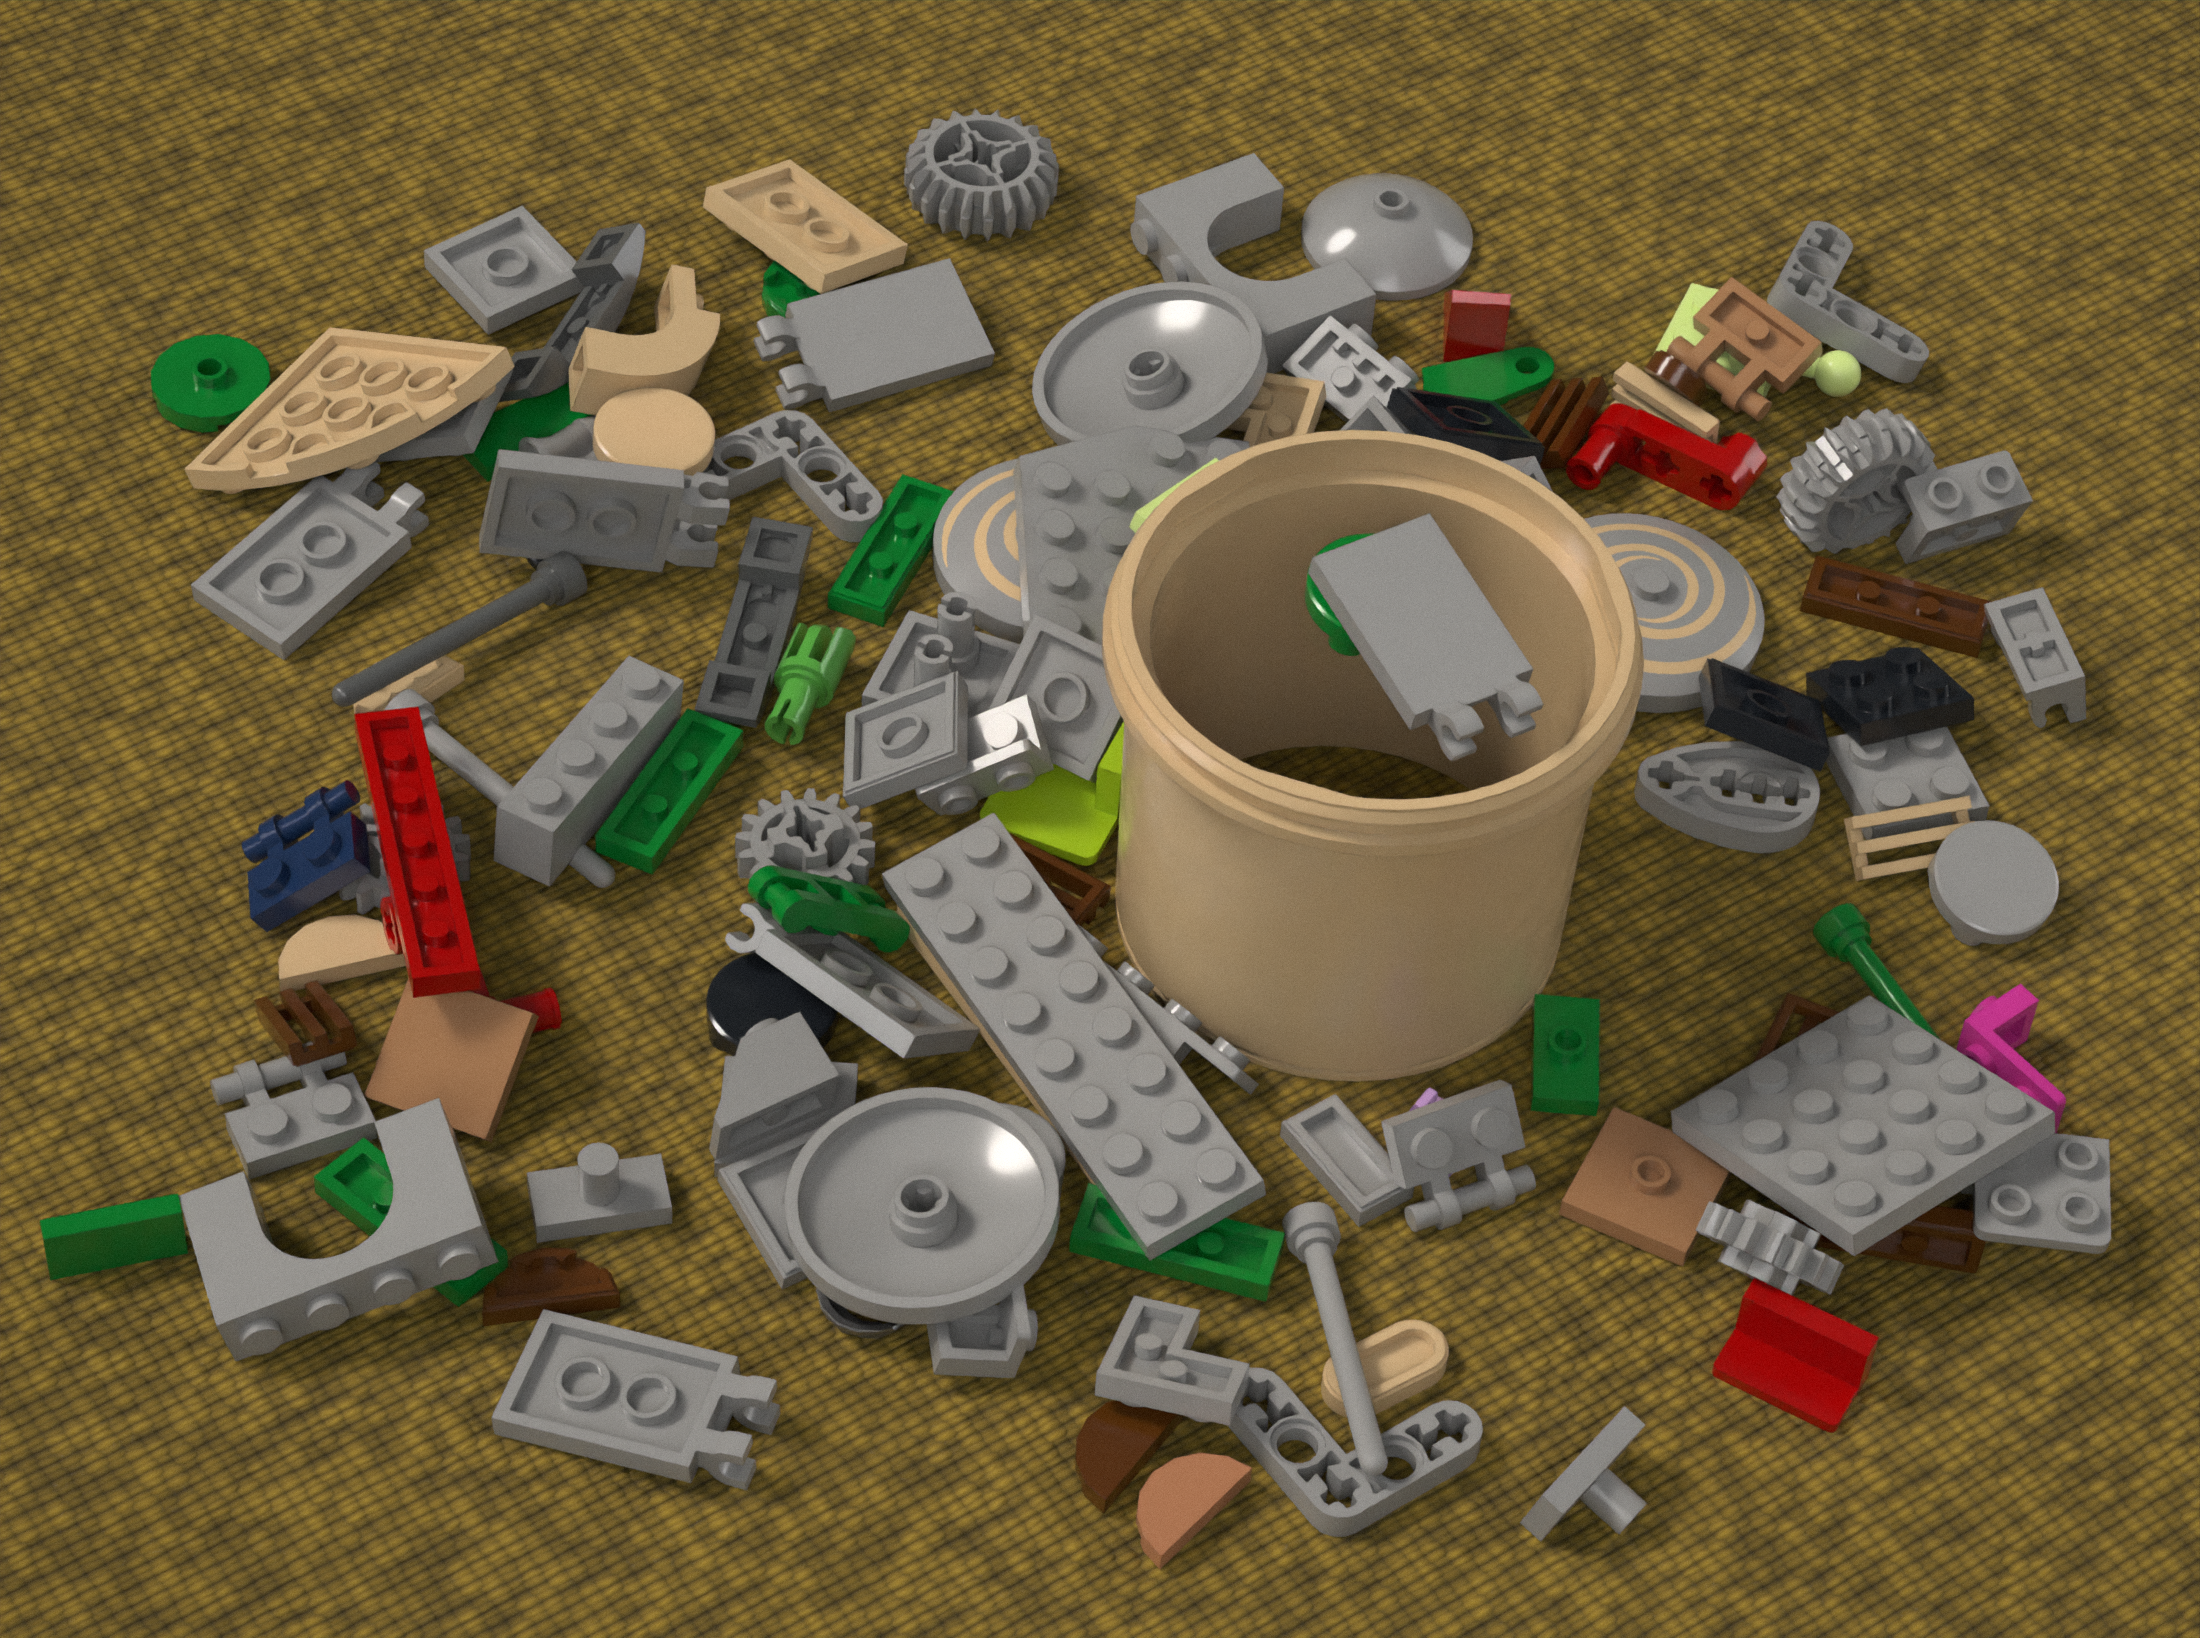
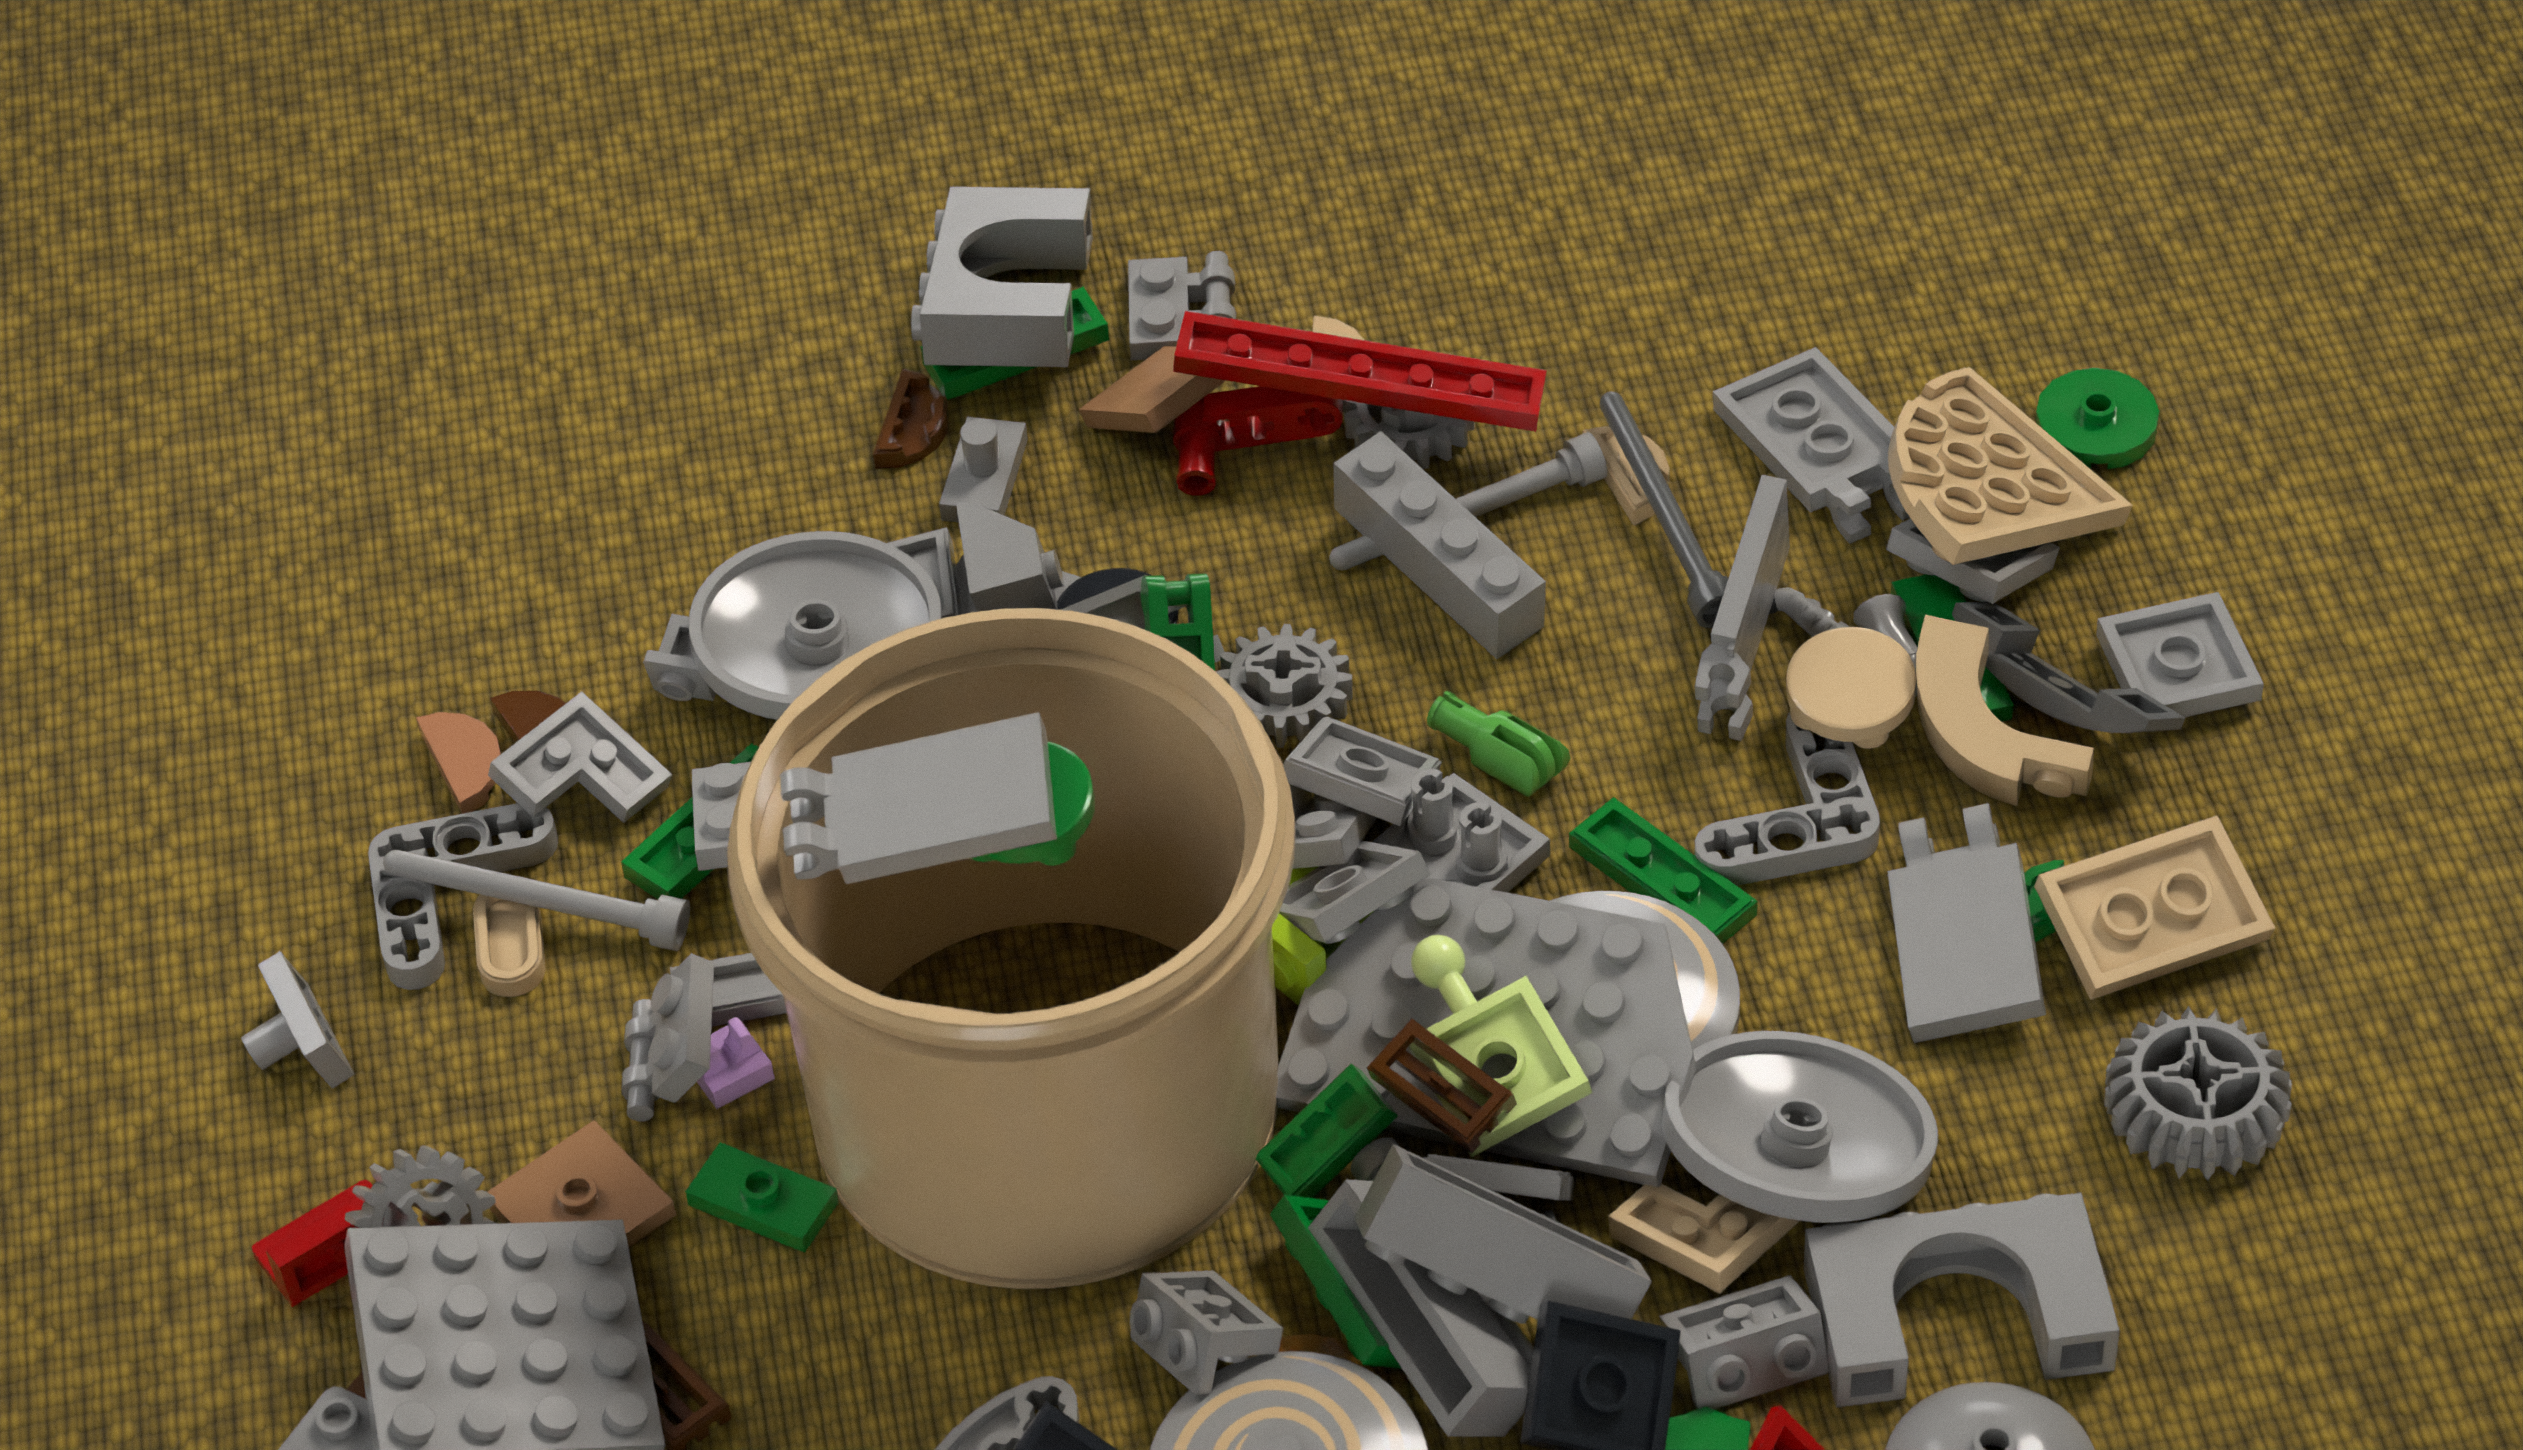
camera: 120 degrees right, 0 degrees up
(114, 1236) = (1095, 158): green tile -> none
(300, 1009) = (1234, 298): reddish brown tile -> none
(313, 868) = (1419, 330): dark blue plate -> none
(635, 1401) = (763, 440): light grey tile -> none
(669, 791) = (1408, 615): green plate -> none
(758, 623) = (1595, 735): dark grey slope -> none

